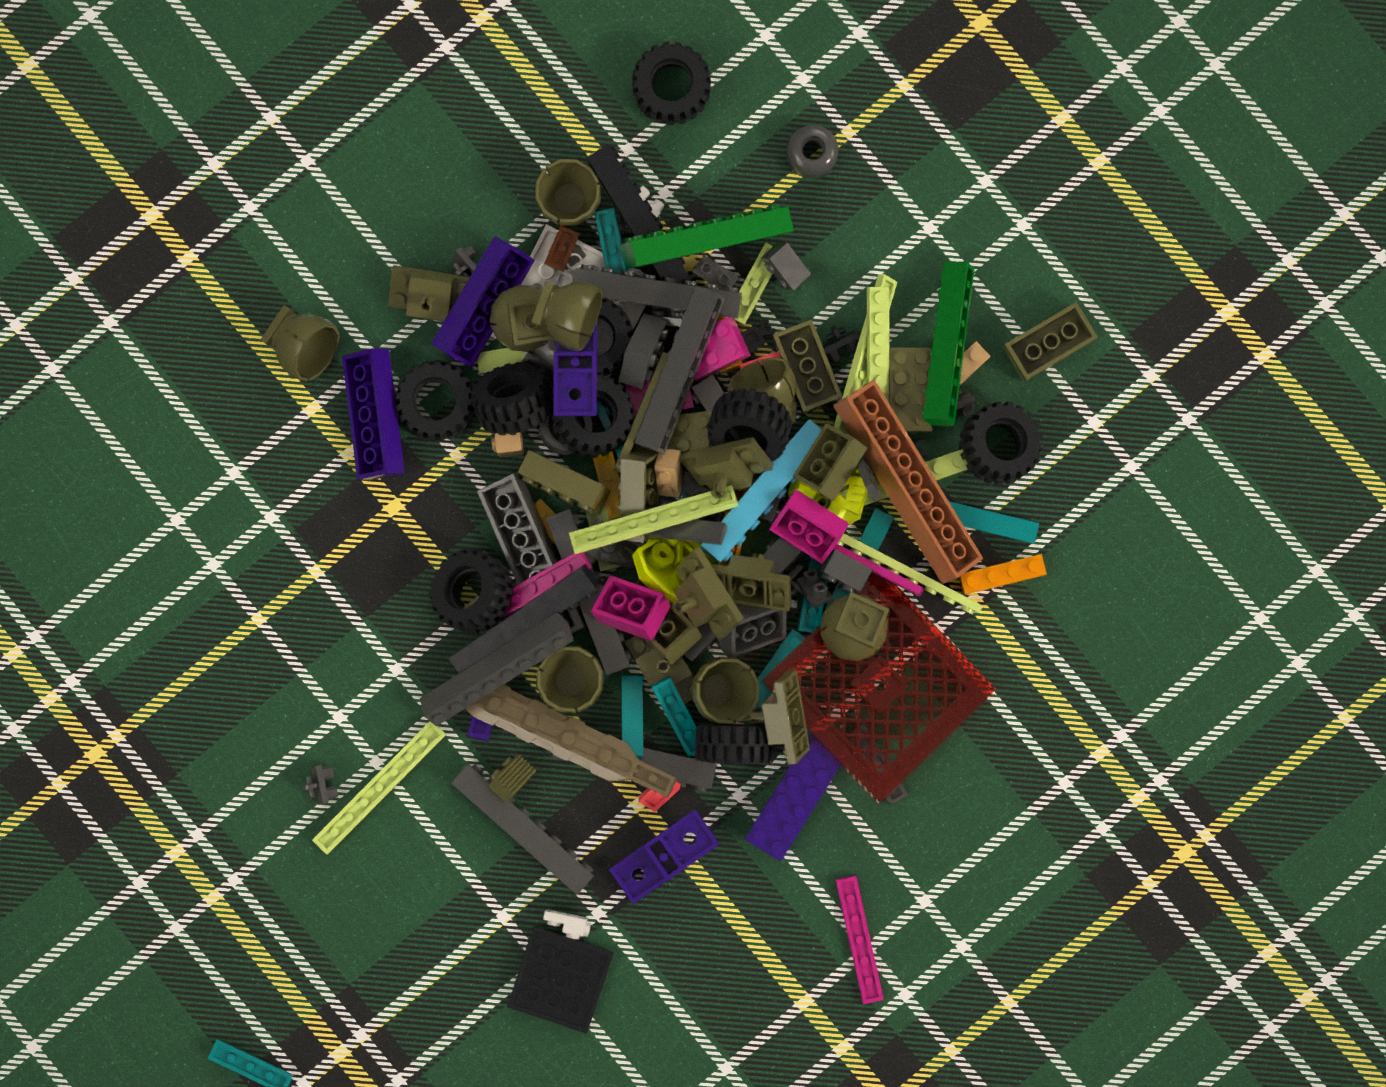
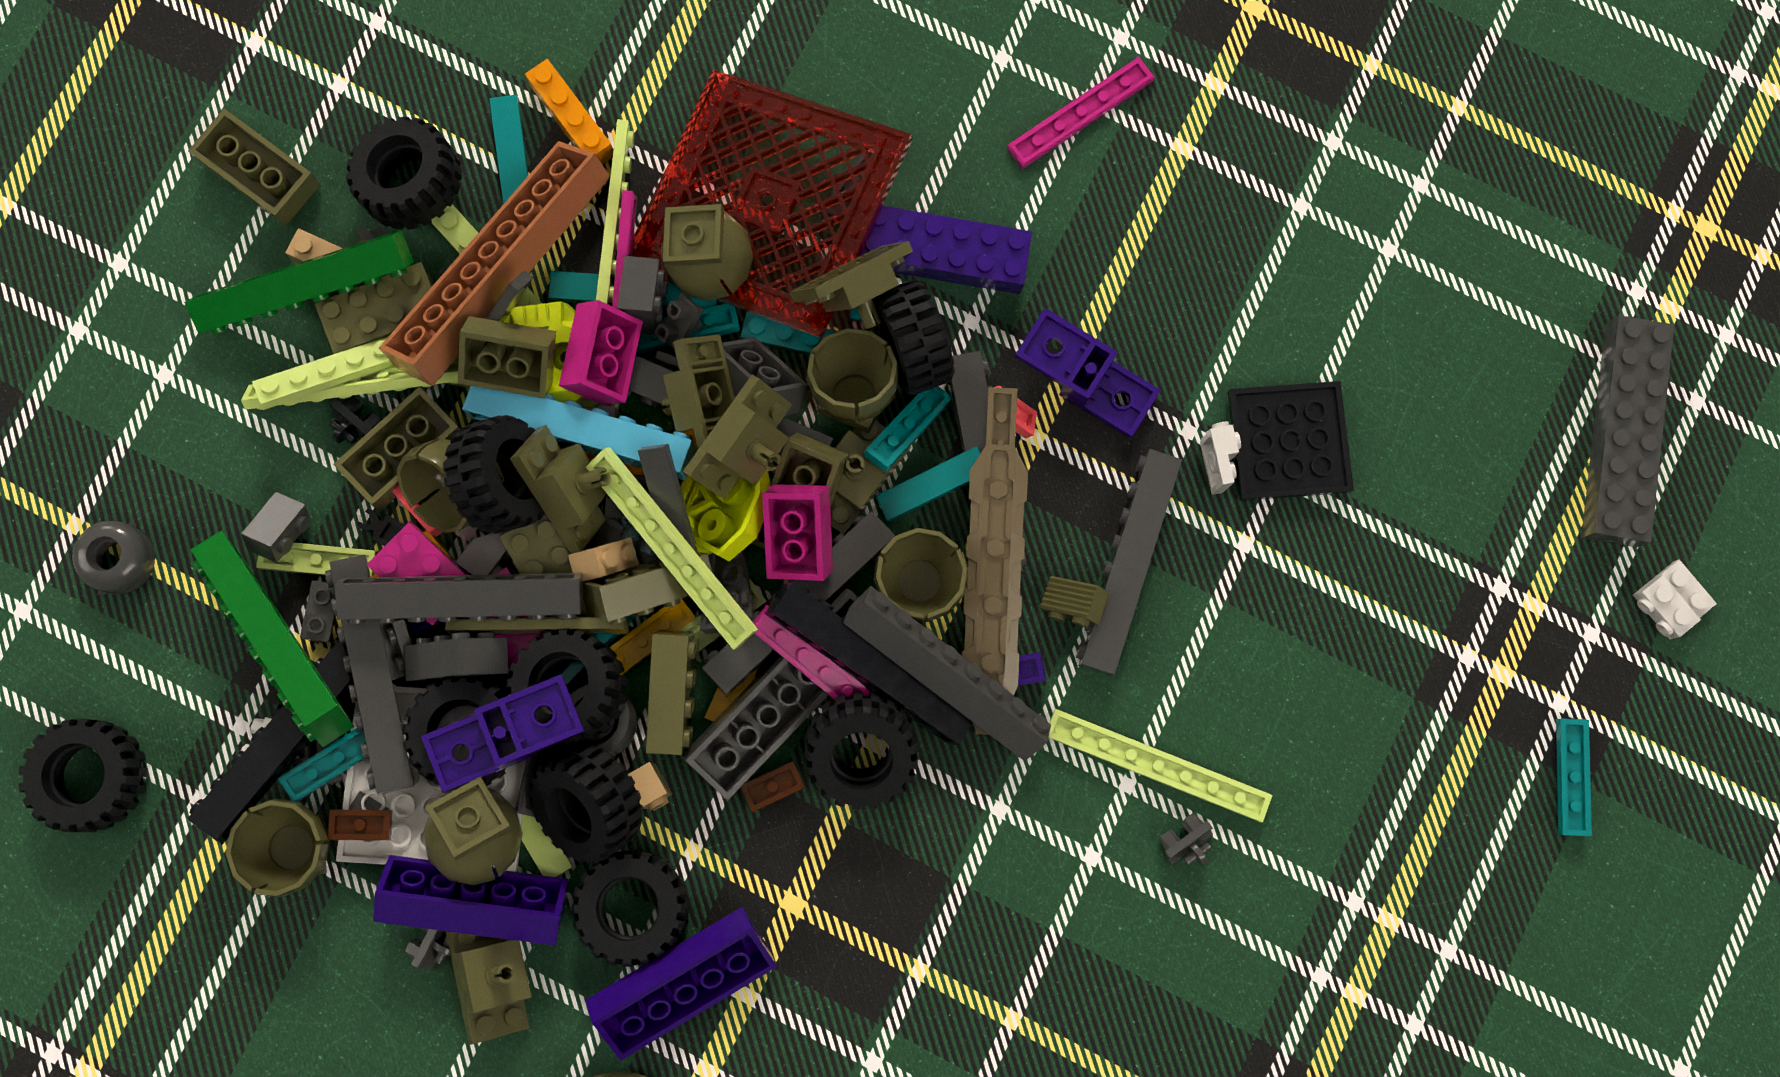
camera: 120 degrees left, 5 degrees down
(475, 525) = (772, 786): none -> reddish brown plate
(568, 309) = (432, 767): olive plate -> none

